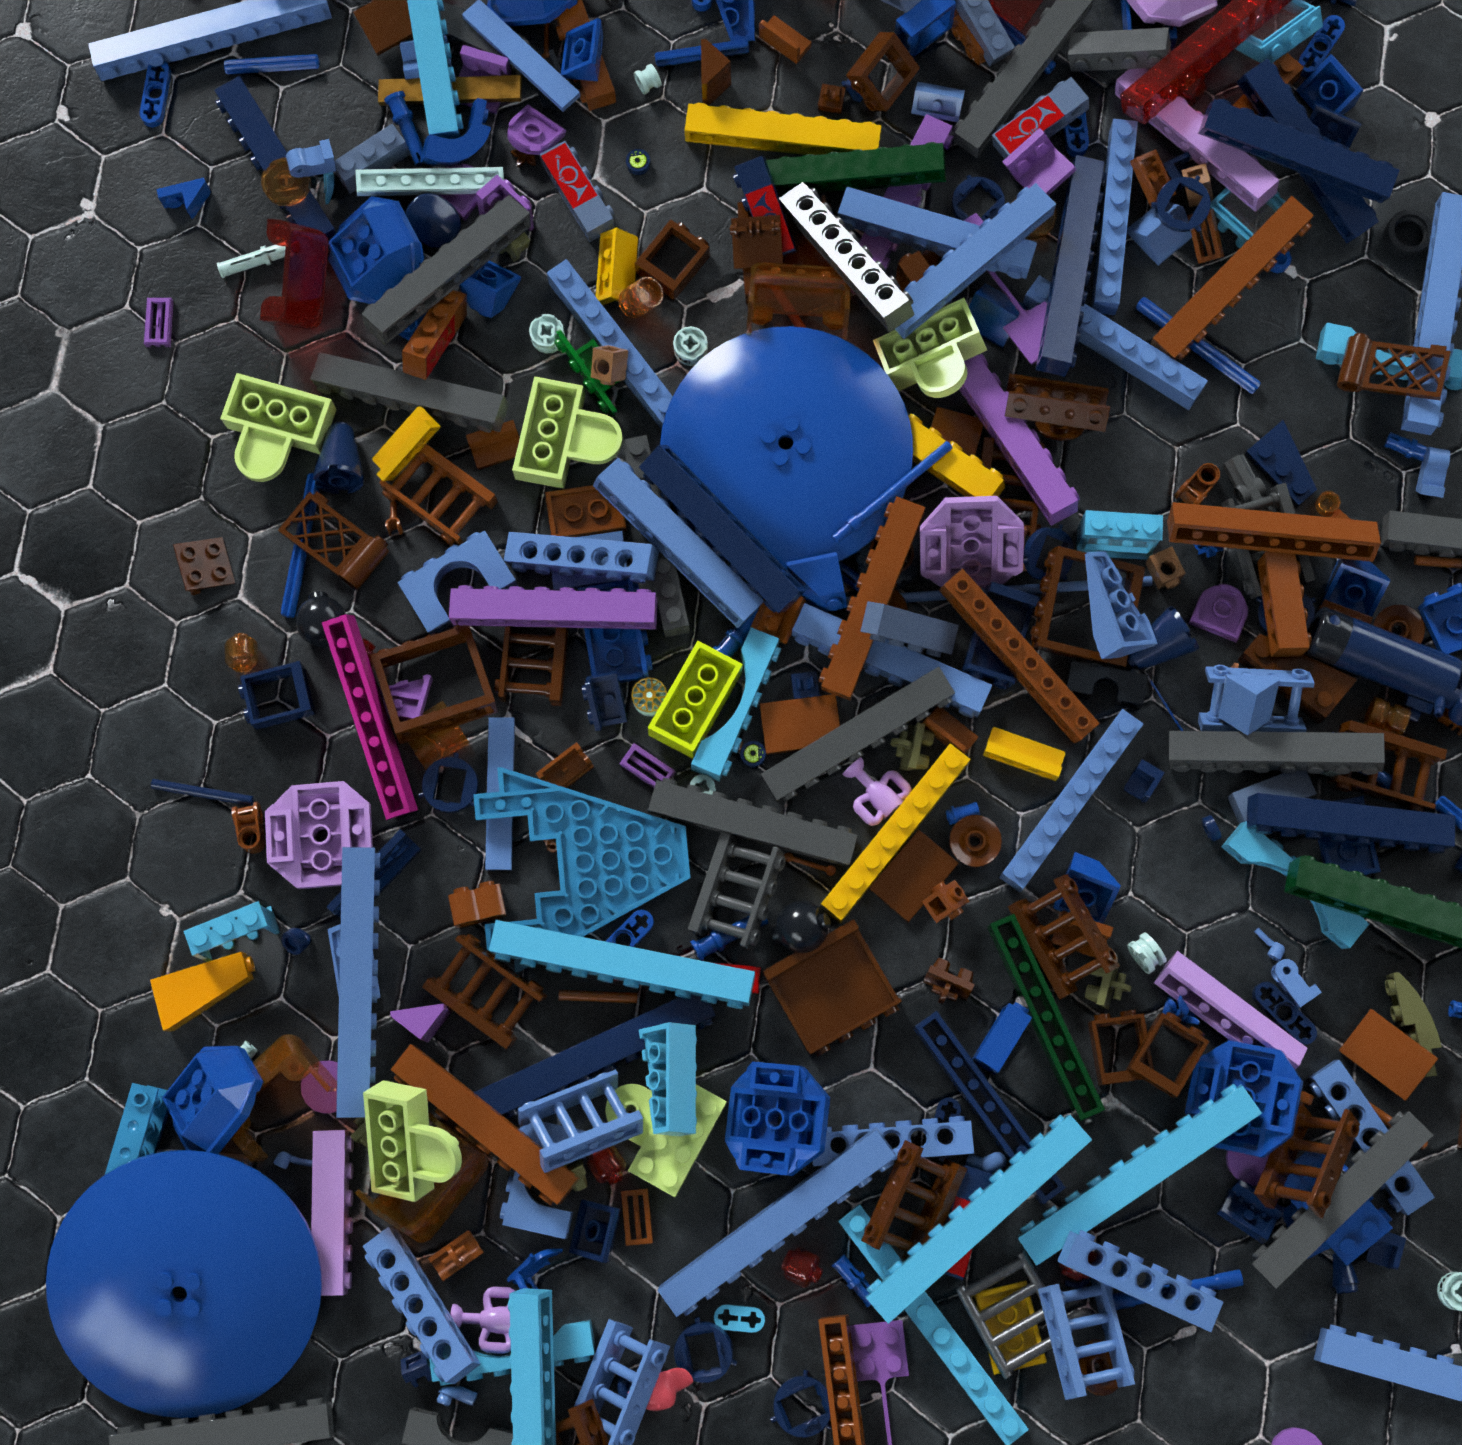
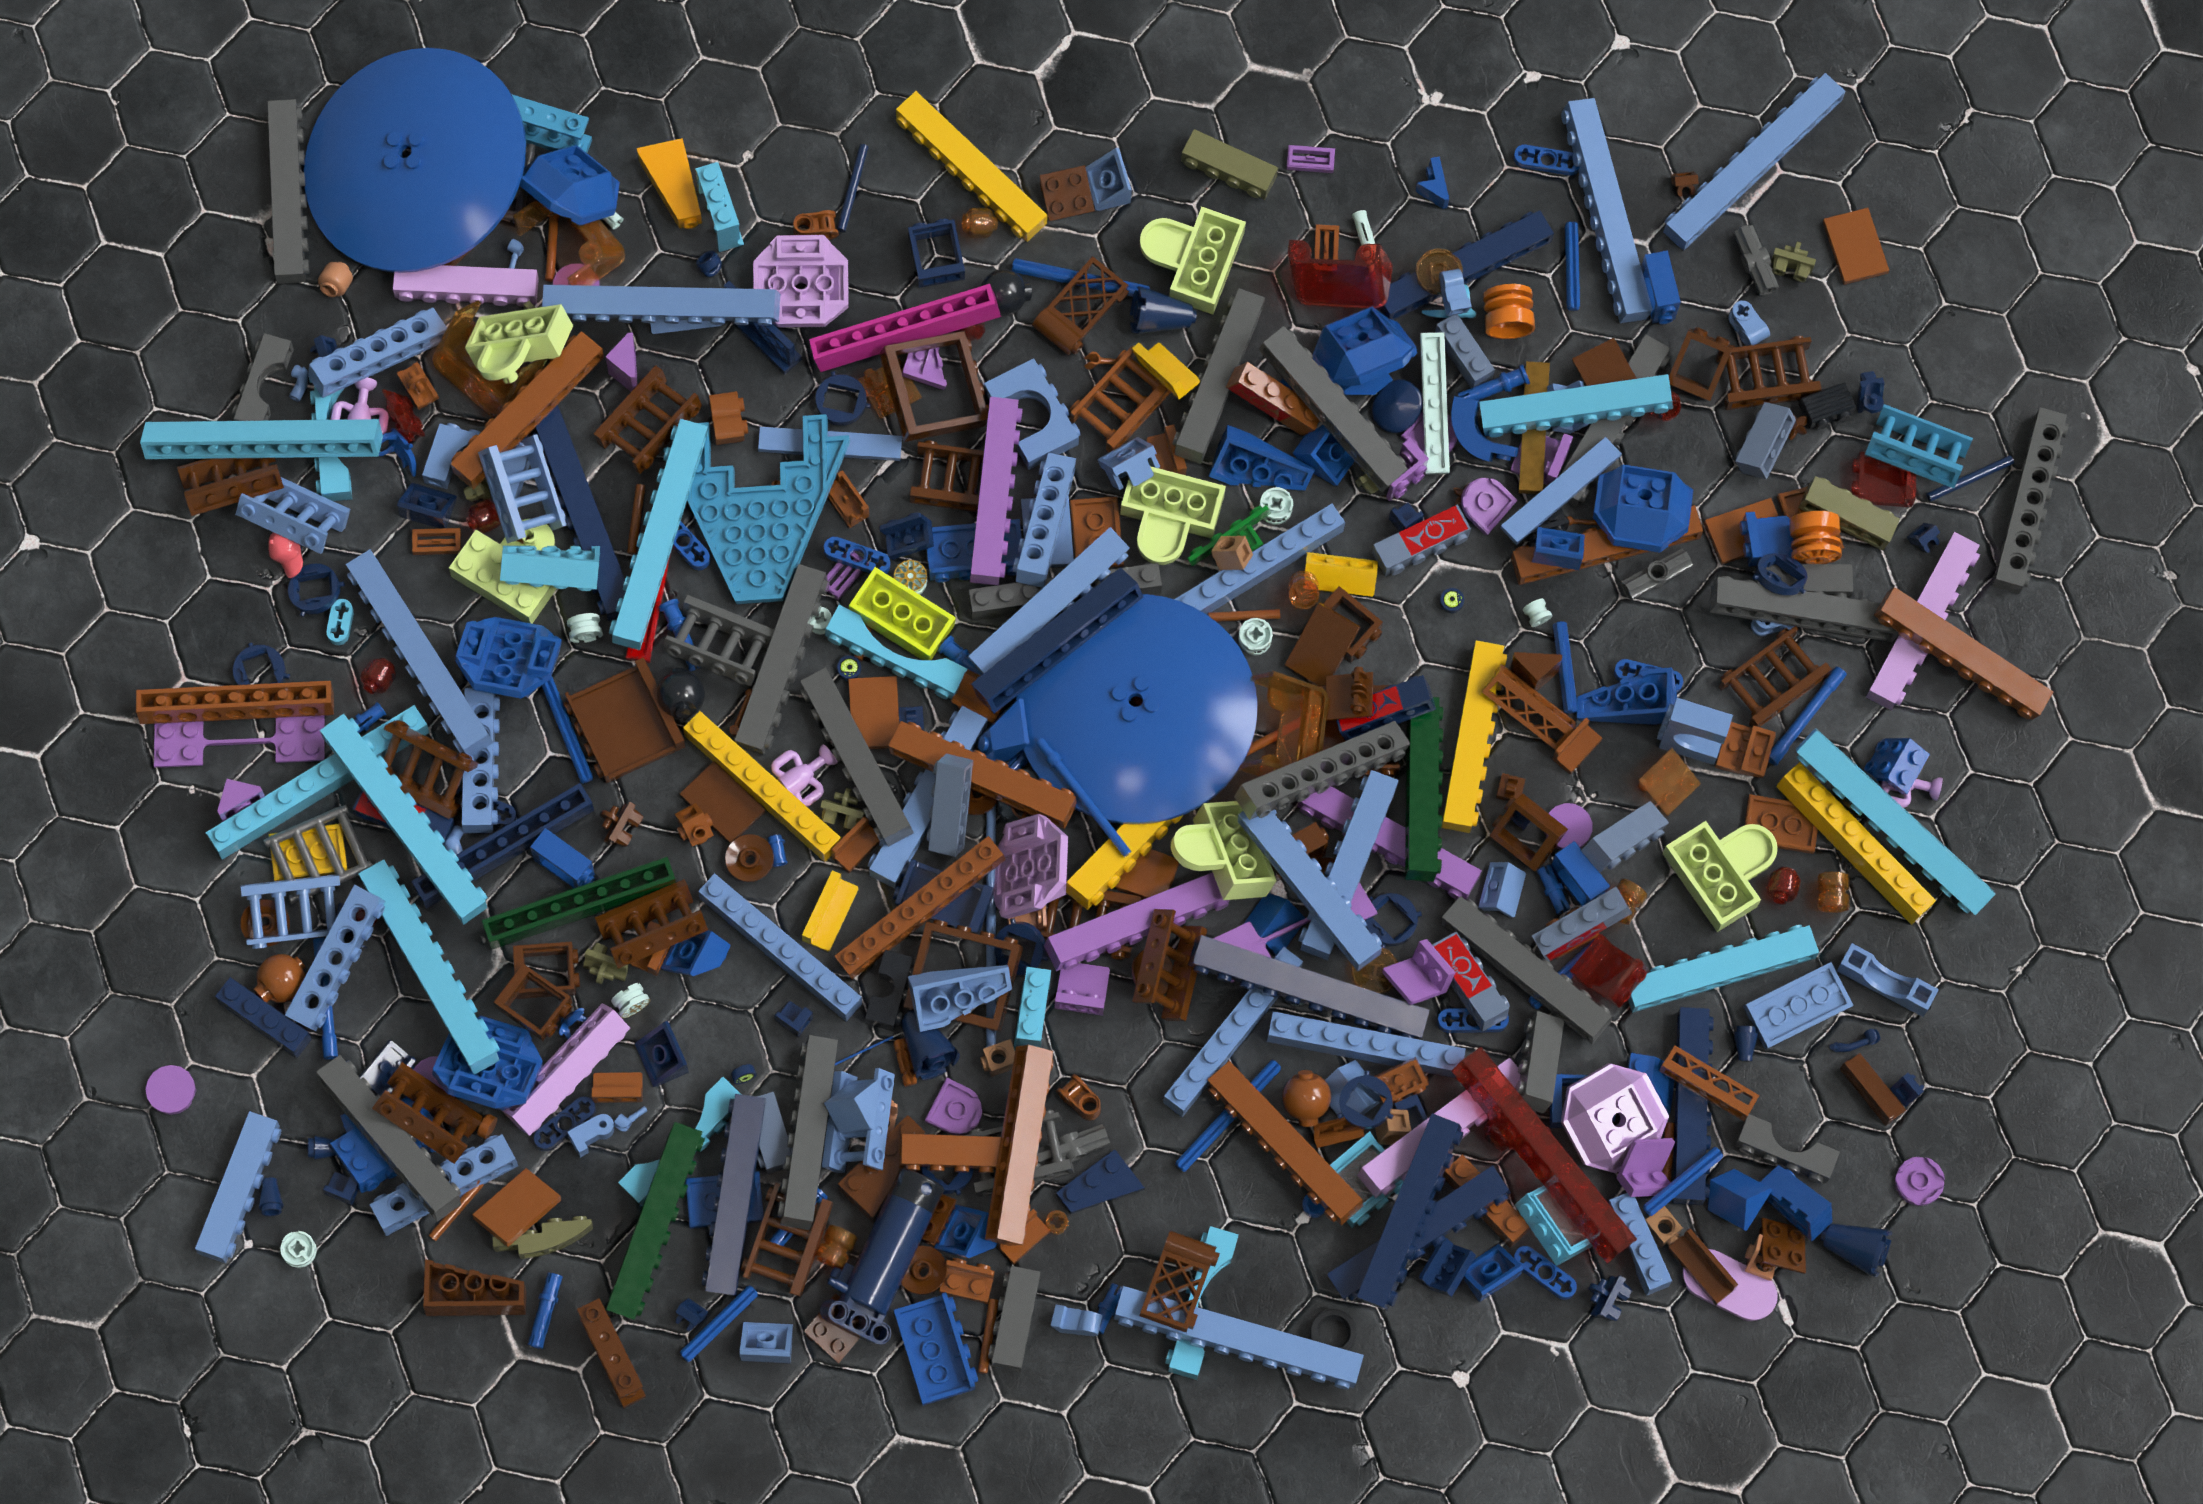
camera: 85 degrees right, 5 degrees down
(168, 400) = (1229, 164): none -> olive brick
(174, 666) = (971, 166): none -> yellow brick
(189, 519) = (1109, 181): none -> medium blue slope
(252, 292) = (1326, 228): none -> dark orange tile
(287, 1118) = (551, 248): none -> dark orange bar
(326, 114) = (1509, 311): none -> orange wheel
(329, 1365) = (335, 279): none -> nougat head
(482, 1273) = (400, 411): none -> clear red hinge
(500, 355) = (1252, 461): none -> blue wedge
(509, 477) = (1131, 460): none -> medium blue panel
(554, 208) = (1405, 517): none -> dark blue panel
(618, 769) = (838, 556): none -> blue beam
(667, 358) = (1245, 615): none -> dark orange bar
(700, 275) = (1322, 645): none -> reddish brown tile
(731, 1039) = (584, 627): none -> light aqua wheel
(744, 73) = (1535, 700): none -> dark orange fence
(854, 1046) = (567, 731): none -> blue axle
(860, 37) = (1577, 822): none -> medium lavender tile
(936, 52) = (1553, 889): none -> blue pin
(963, 1413) = (237, 797): none -> medium lavender slope
(1091, 486) = (1083, 989): none -> medium lavender bracket
(1163, 1343) = (279, 978): none -> dark orange brick
(1177, 266) = (1306, 1097): none -> dark orange brick
(1178, 665) = (904, 1062): none -> dark orange axle
(1200, 915) = (661, 1055): none -> dark blue slope
(1208, 1359) = (263, 1017): none -> dark blue brick
(1239, 960) = (617, 1087): none -> dark orange panel
(1403, 583) = (968, 1281): none -> dark orange bracket
(1406, 1328) = (270, 1198): none -> dark blue cone

